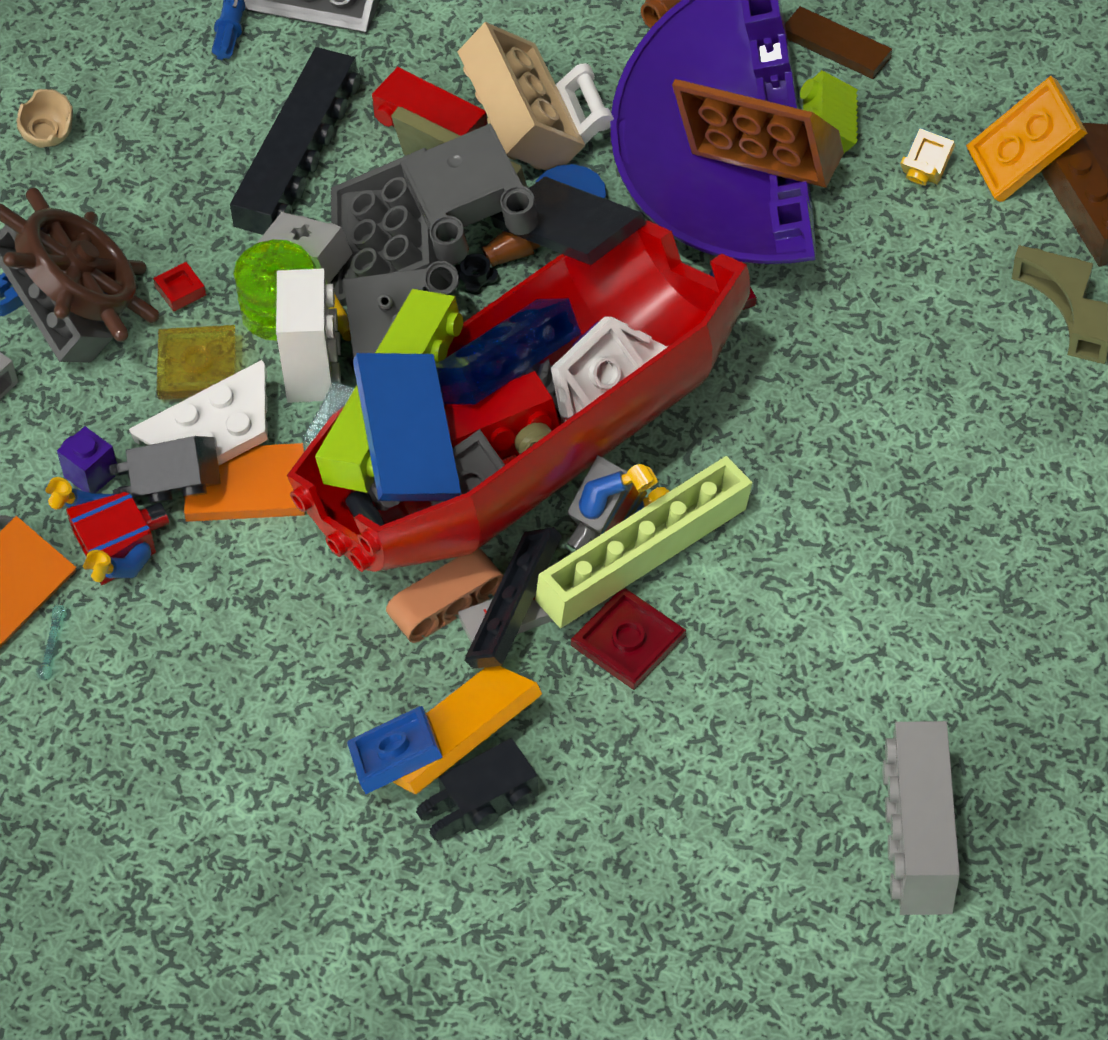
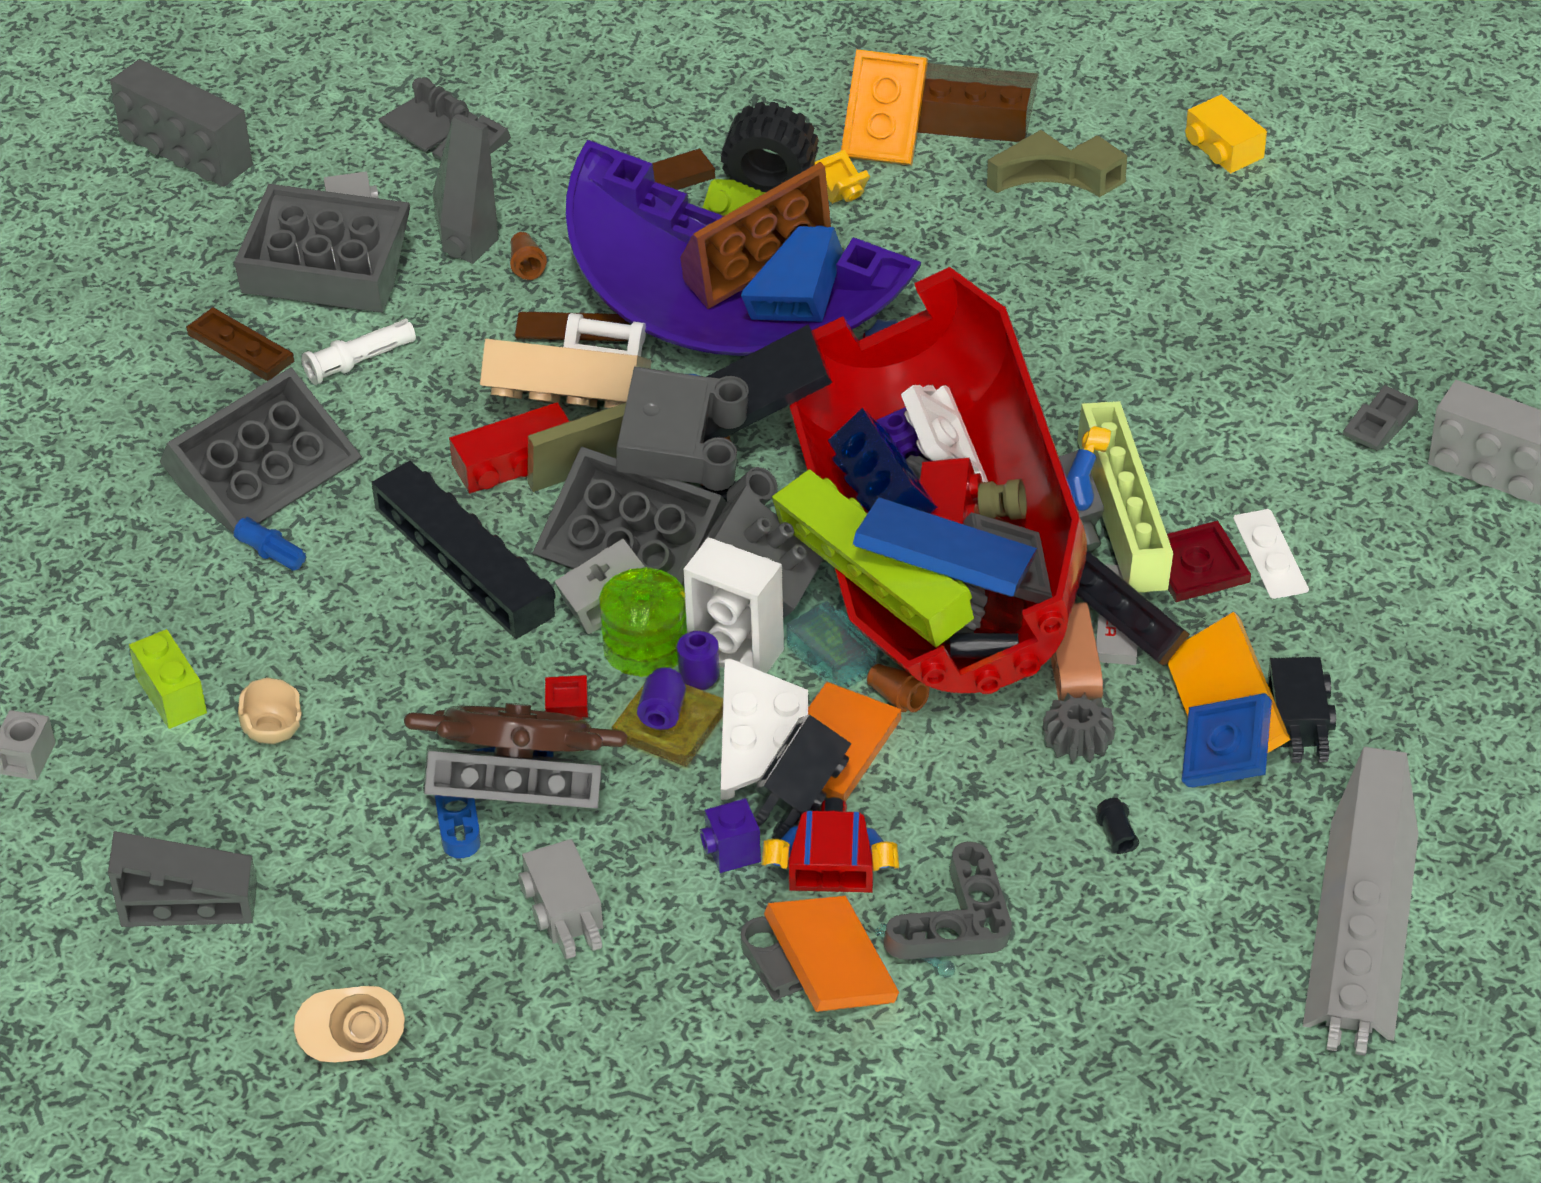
camera: 60 degrees left, 10 degrees down
(42, 44) = (168, 679): none -> lime brick
(95, 663) = (967, 922): none -> dark grey beam
(192, 342) = (661, 699): none -> dark purple brick
(261, 344) = (698, 659): none -> dark purple brick
(264, 717) = (1114, 817): none -> black pin
(285, 943) = (1365, 903): none -> light grey hinge
(356, 638) = (1078, 727): none -> dark grey gear
(604, 66) = (553, 325): none -> reddish brown piece
(681, 690) = (1271, 554): none -> white piece
(744, 184) = (796, 278): none -> blue slope
(897, 90) = (769, 129): none -> black tyre
(907, 700) = (1382, 419): none -> dark grey slope

